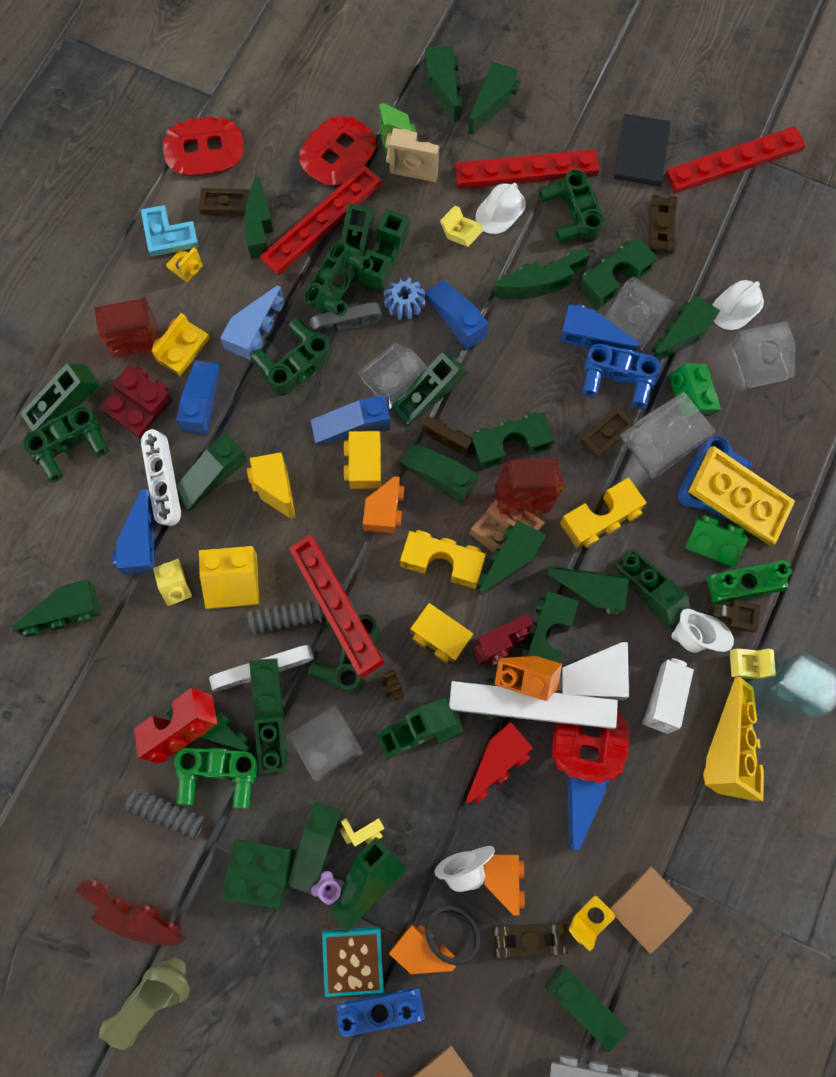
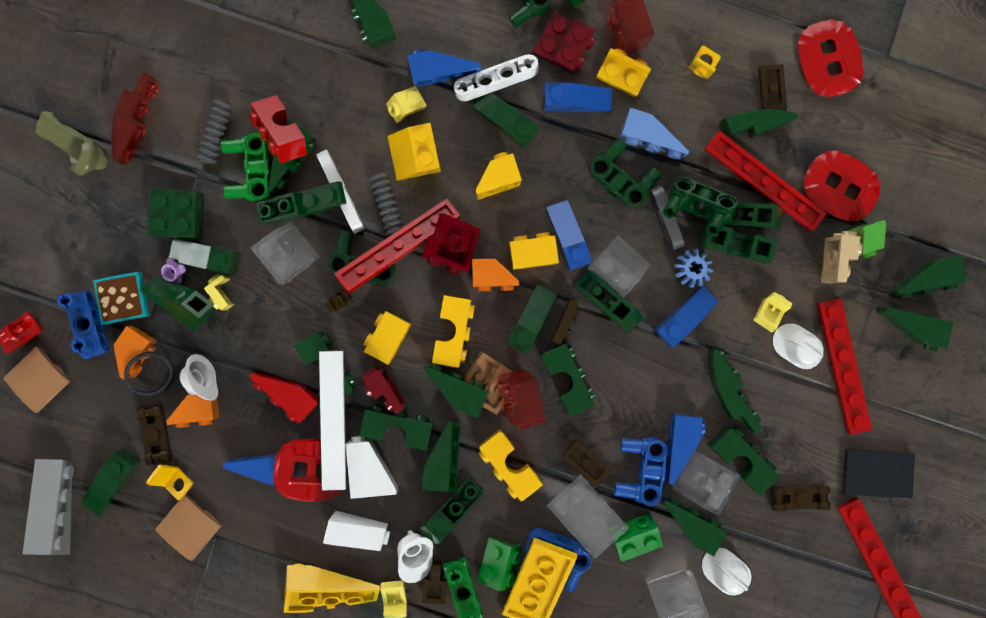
camera: 90 degrees right, 15 degrees up
(166, 238) = (728, 39): medium azure plate -> none
(344, 545) = (451, 244): none -> dark red plate
(417, 728) = (300, 327): dark green arch -> none
(529, 676) = (353, 415): orange slope -> none
(581, 206) = (809, 421): dark green piece -> none

